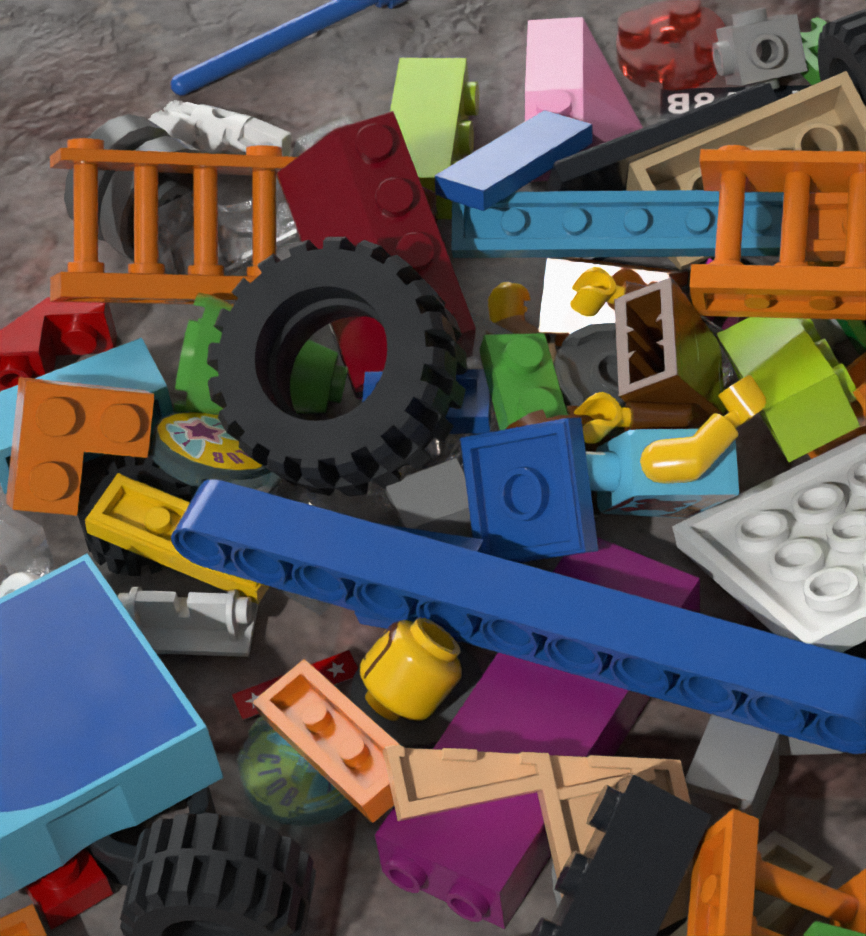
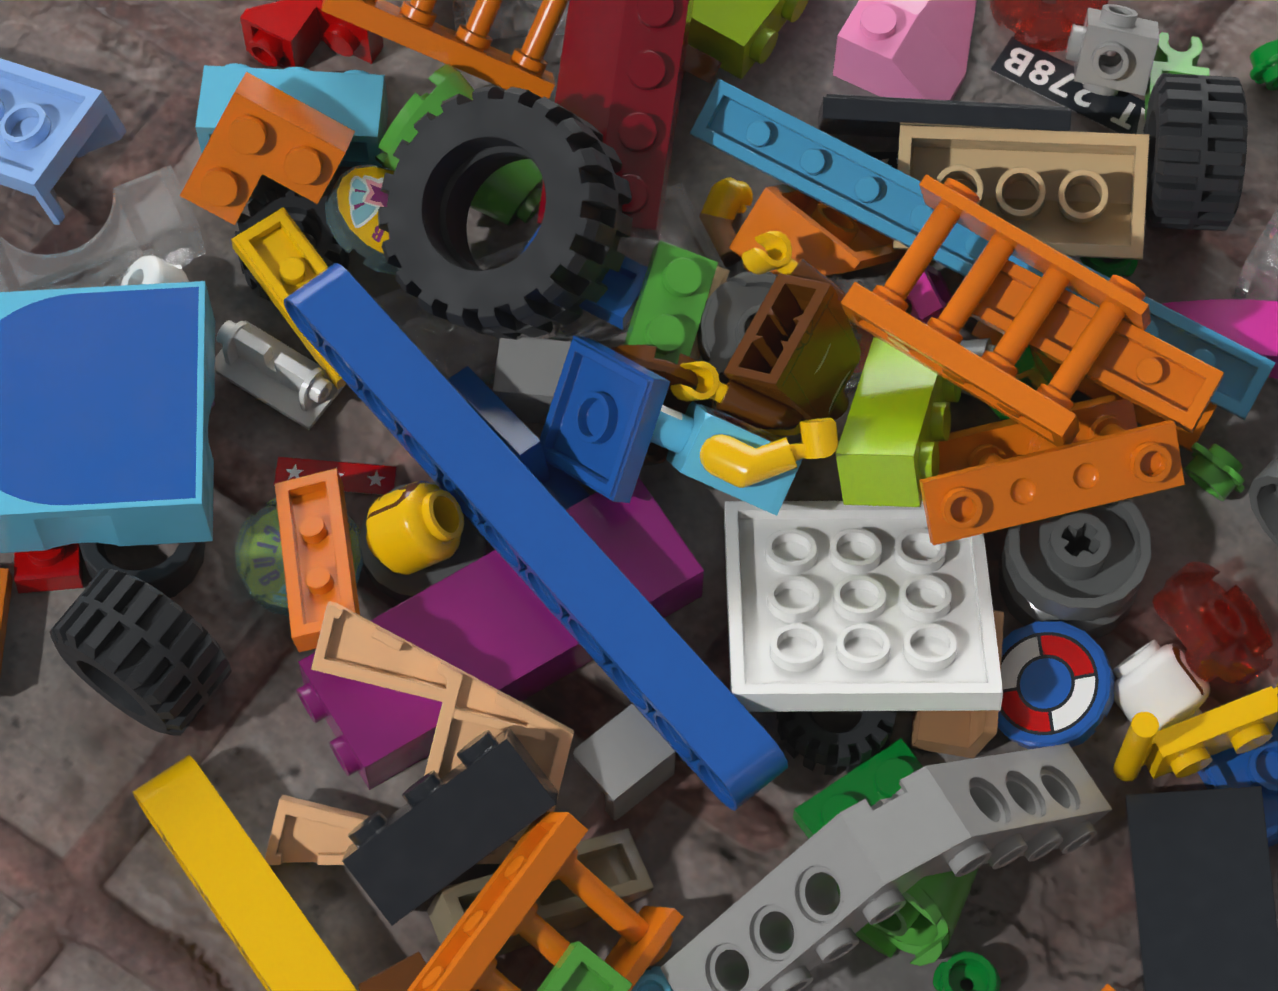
camera: 20 degrees right, 15 degrees up
(512, 160) = (794, 71): tile -> none

